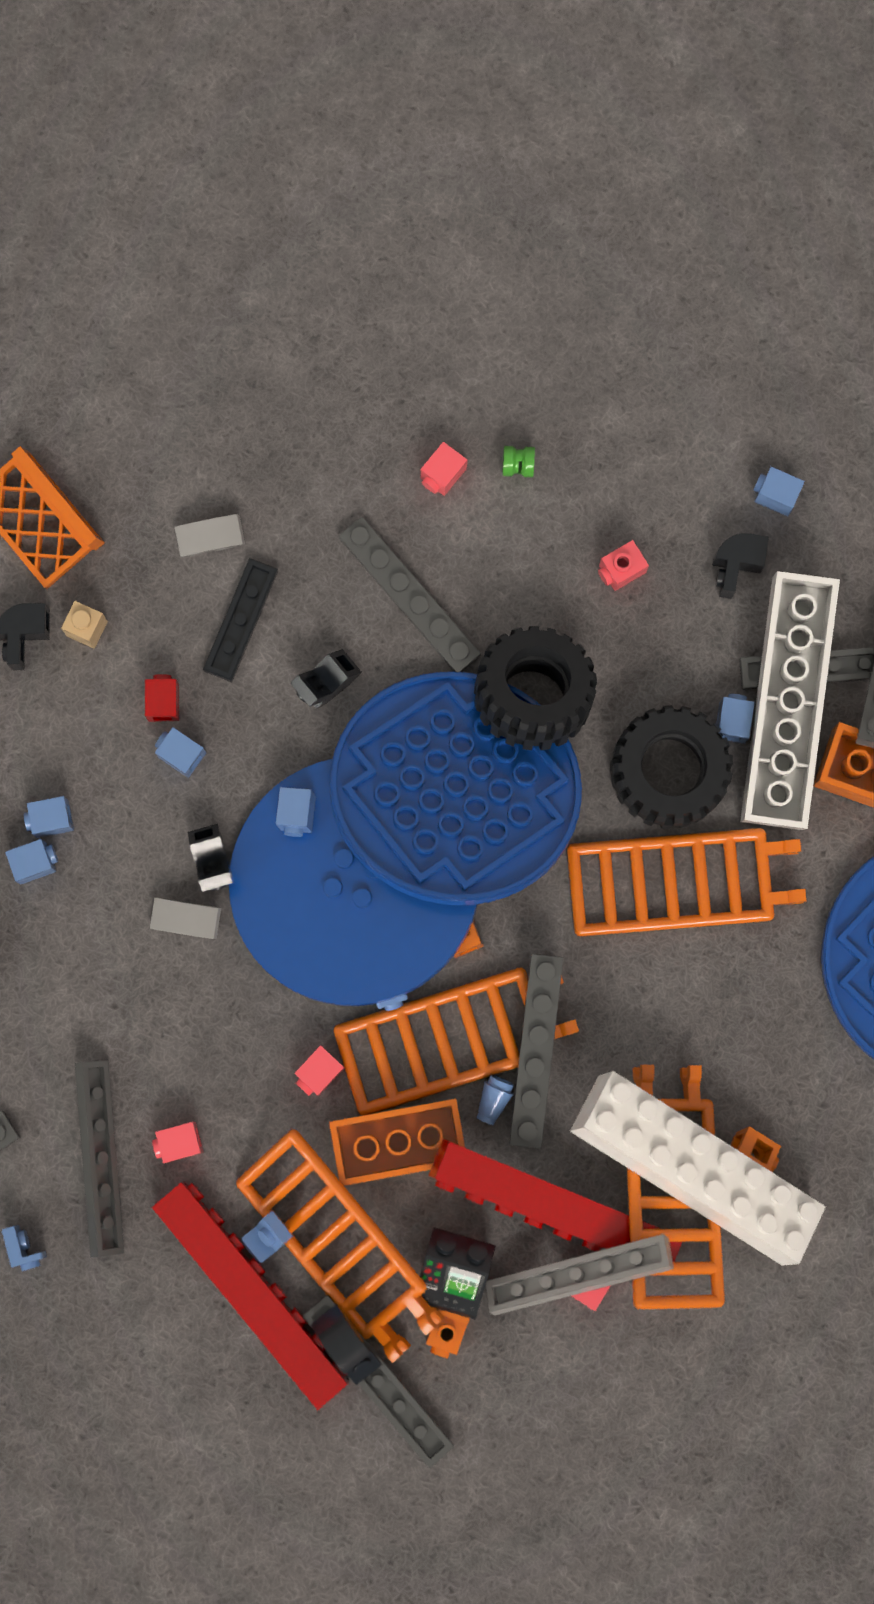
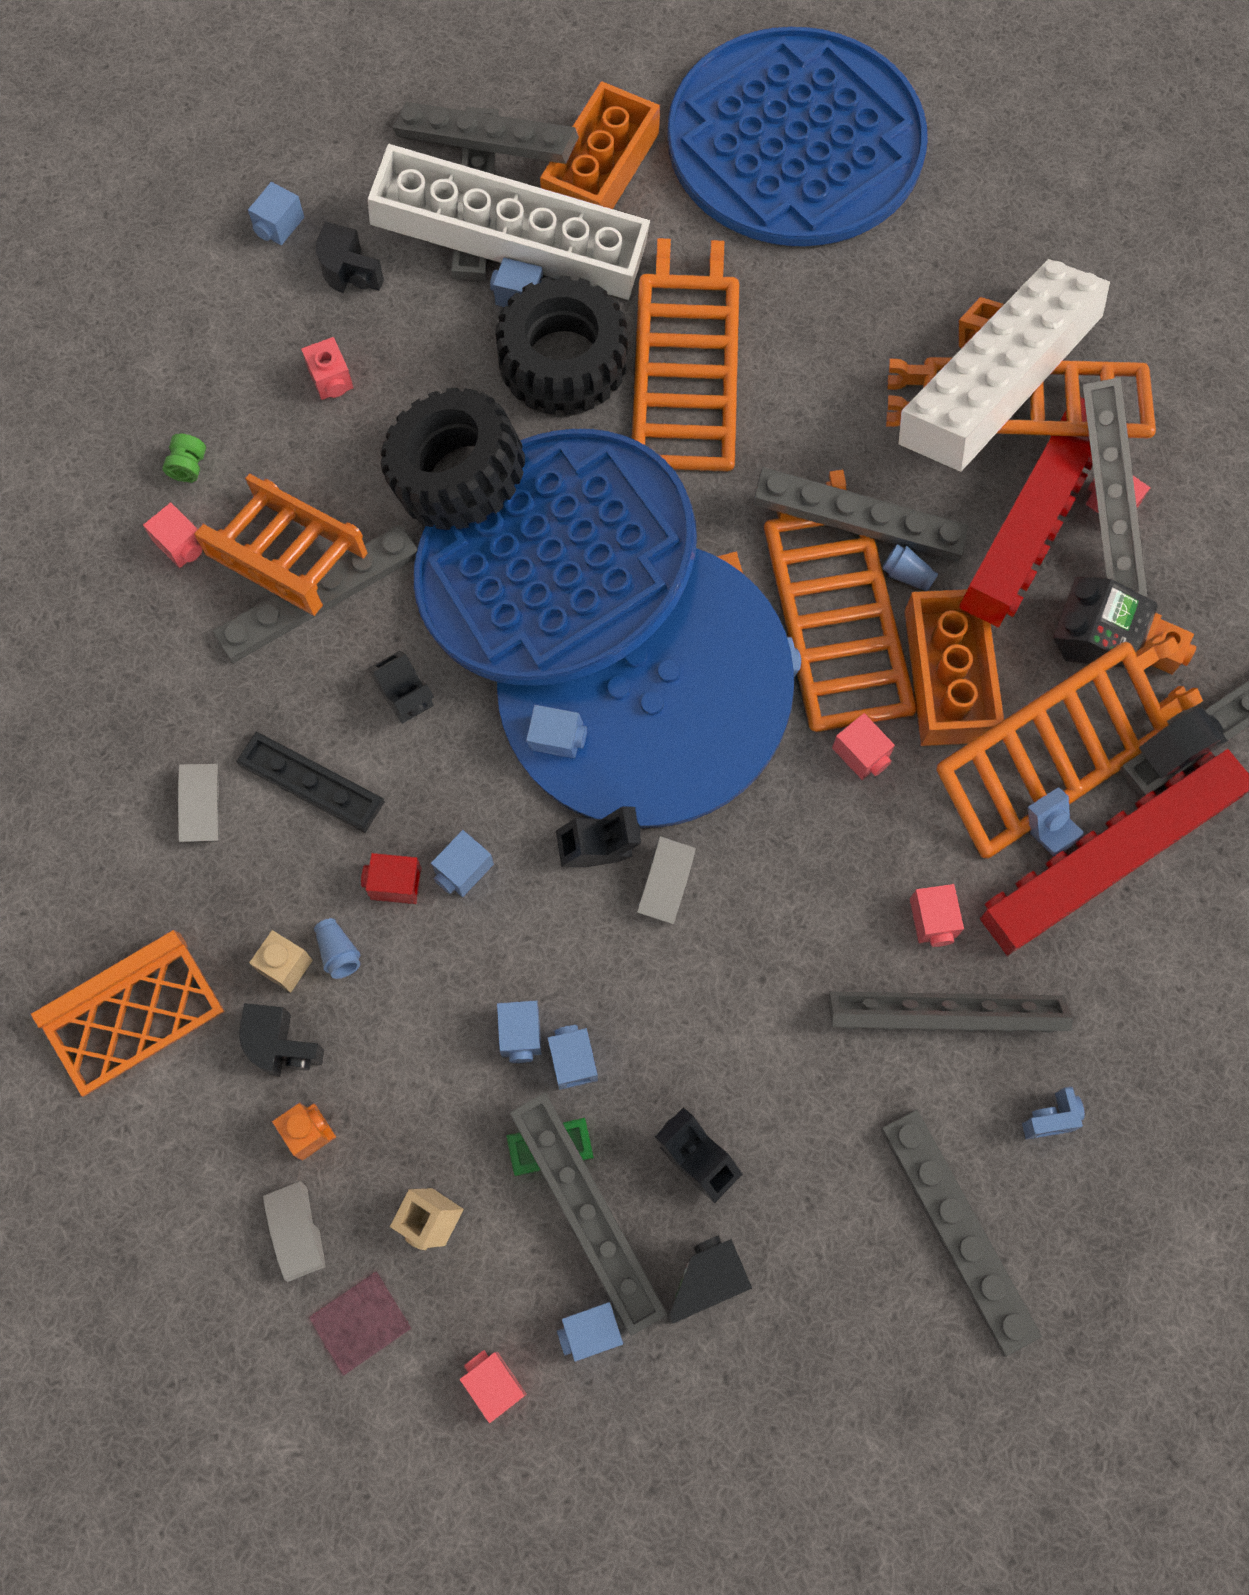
camera: 80 degrees left, 10 degrees down
(101, 664) = (336, 950): none -> medium blue cone
(413, 559) = (275, 574): none -> orange fence

